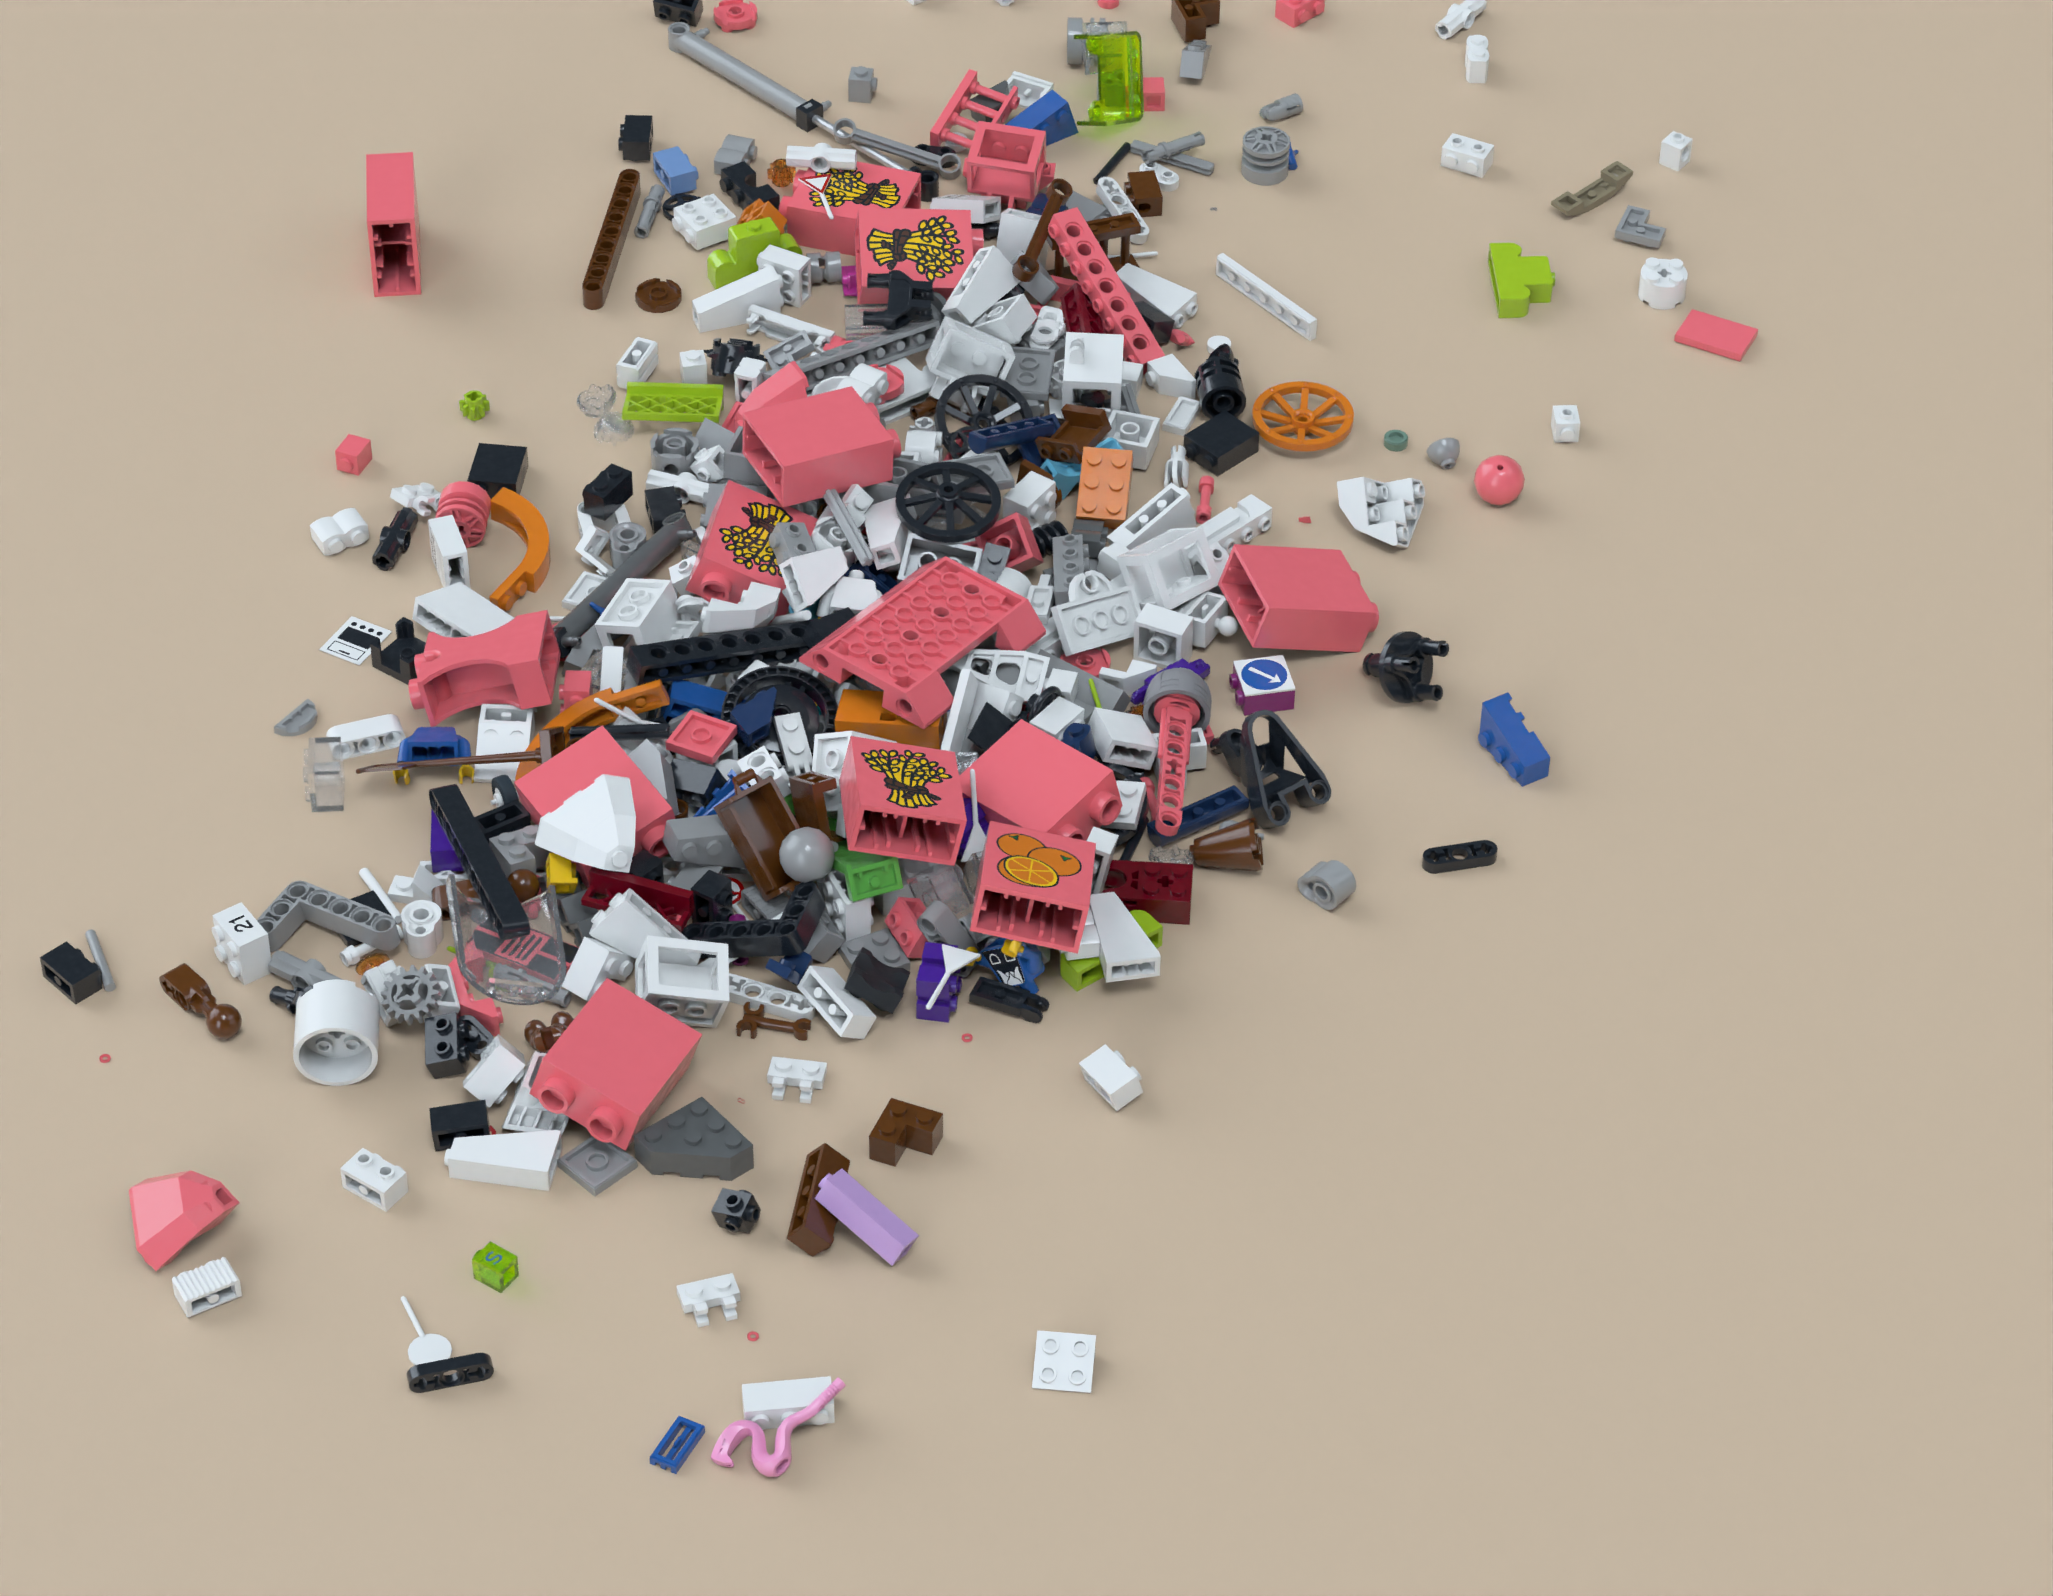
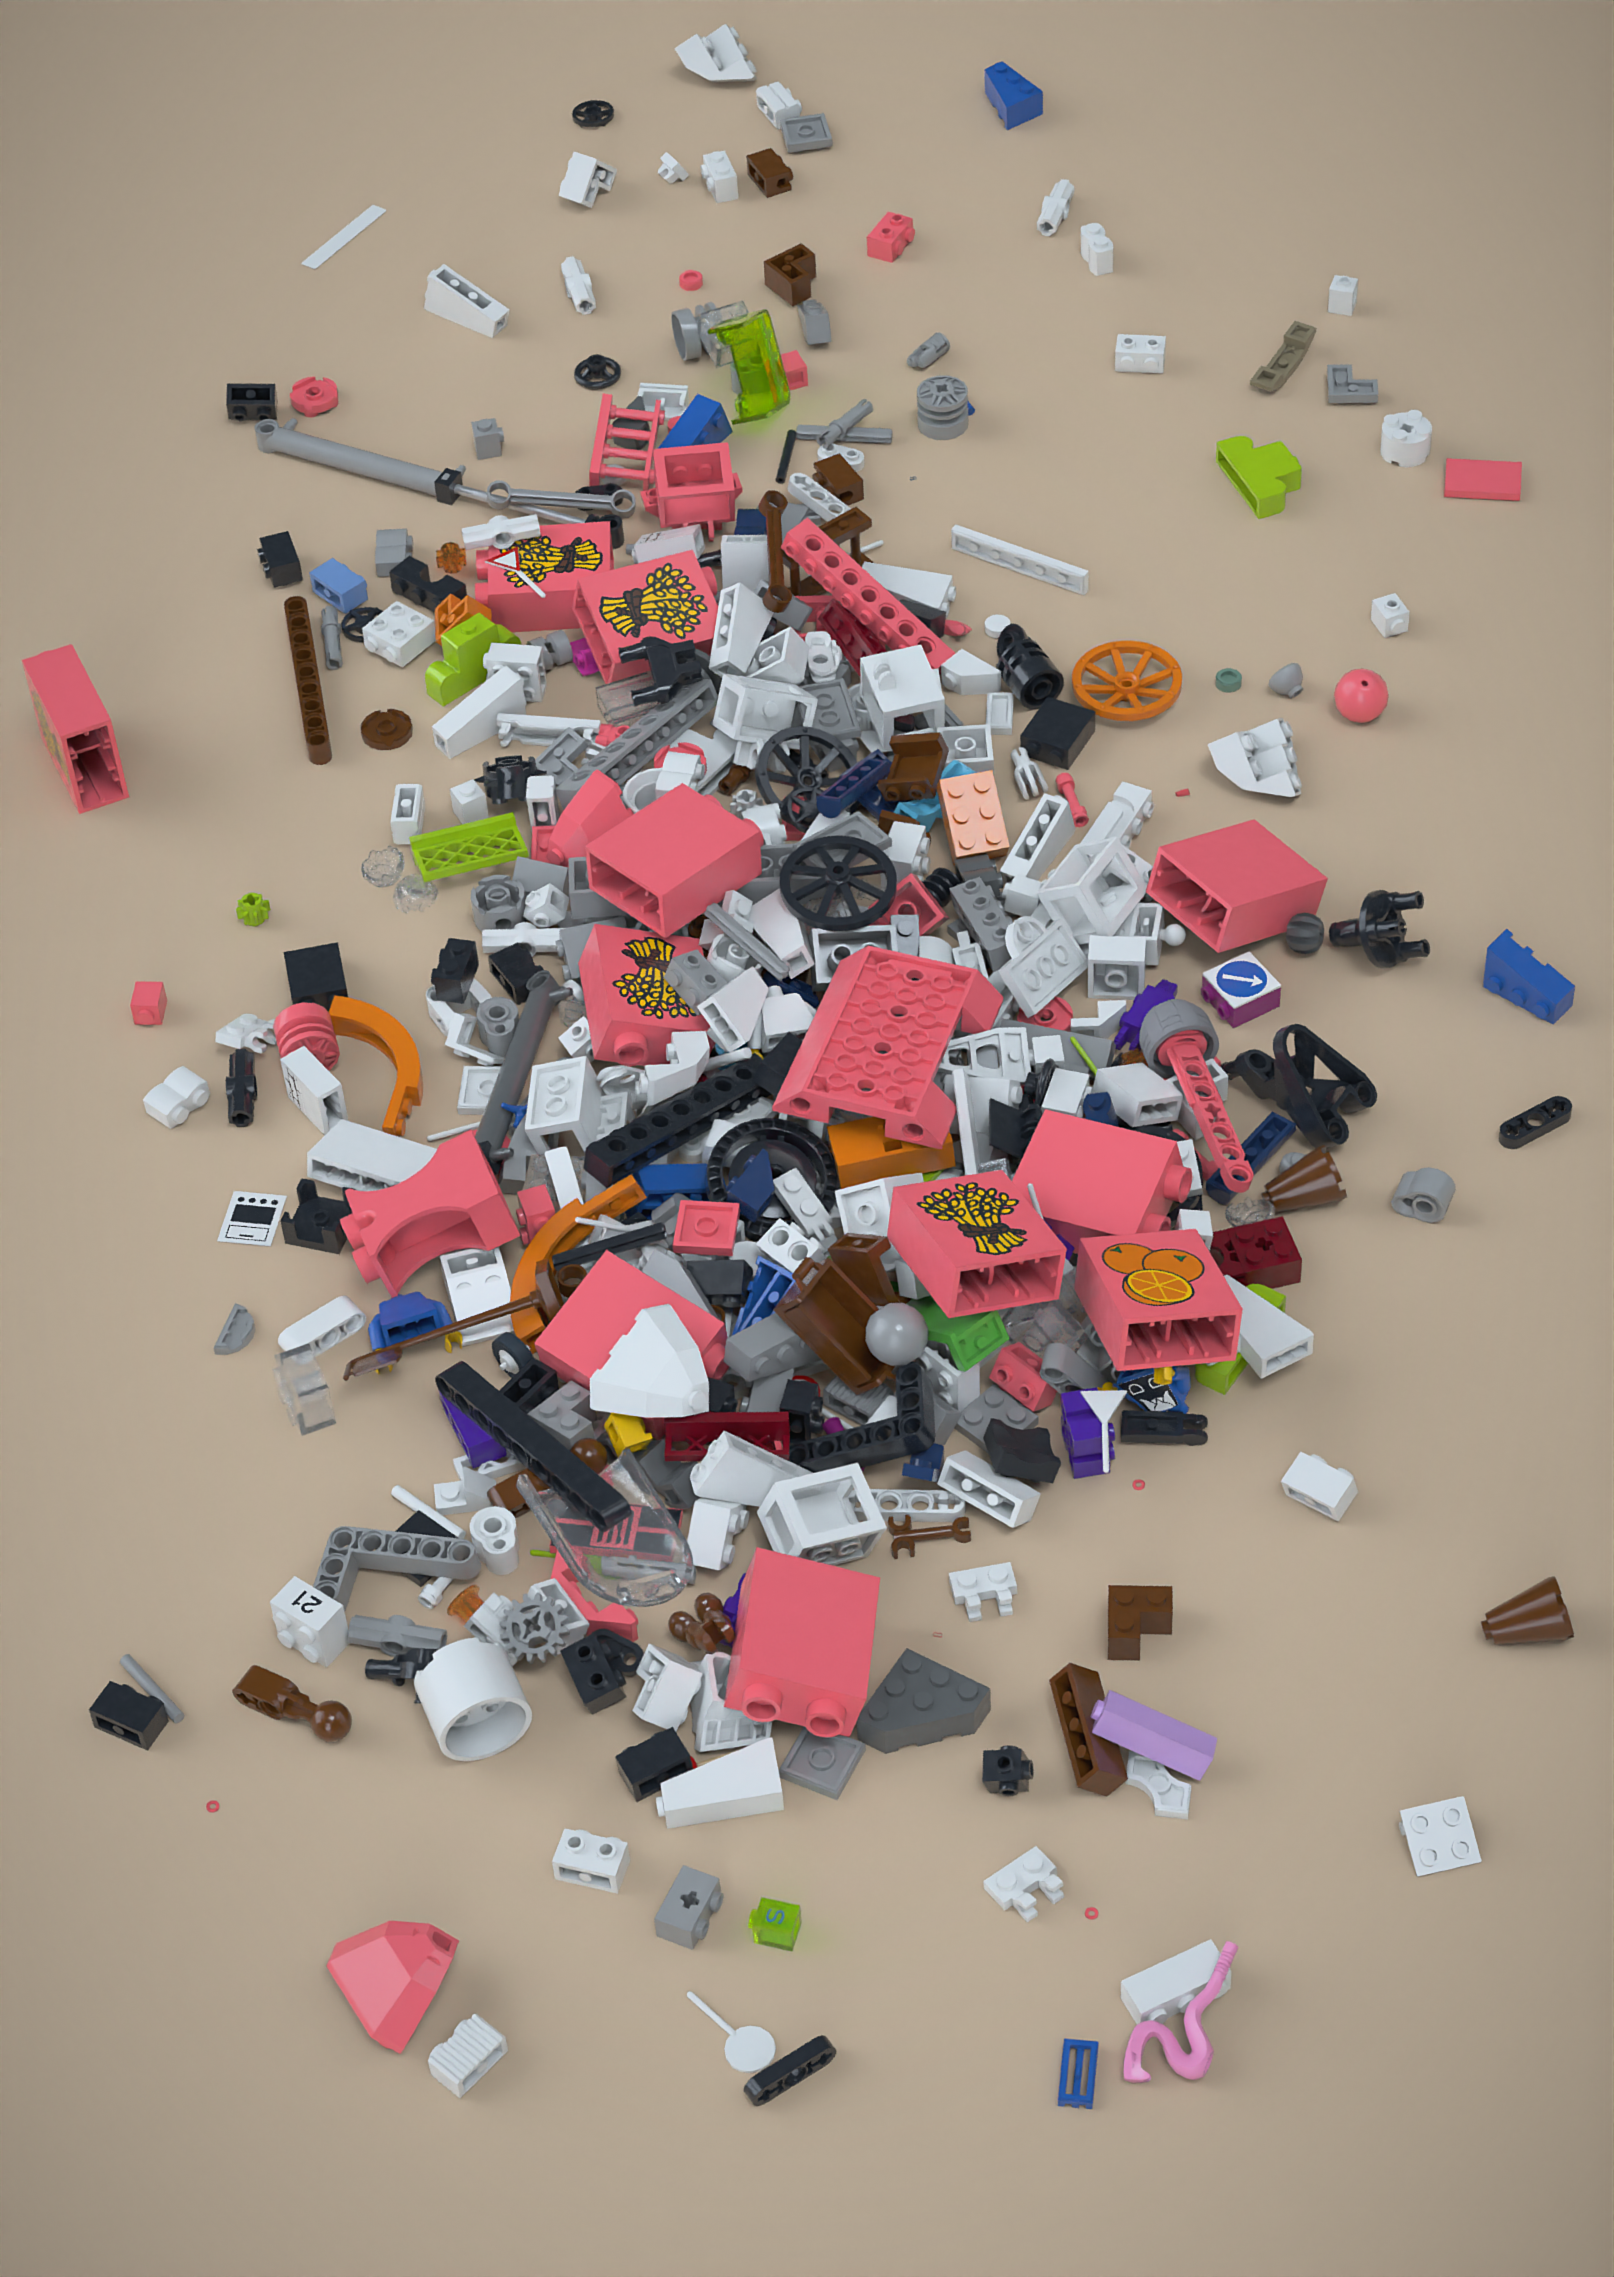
camera: 15 degrees left, 5 degrees up
(432, 1234) = (688, 1907): none -> light grey brick
(861, 1268) = (1168, 1794): none -> white tile
(986, 51) = (596, 369): none -> black piece
(1231, 1222) = (1530, 1616): none -> reddish brown cone
(1342, 655) = (1305, 933): none -> dark grey piece

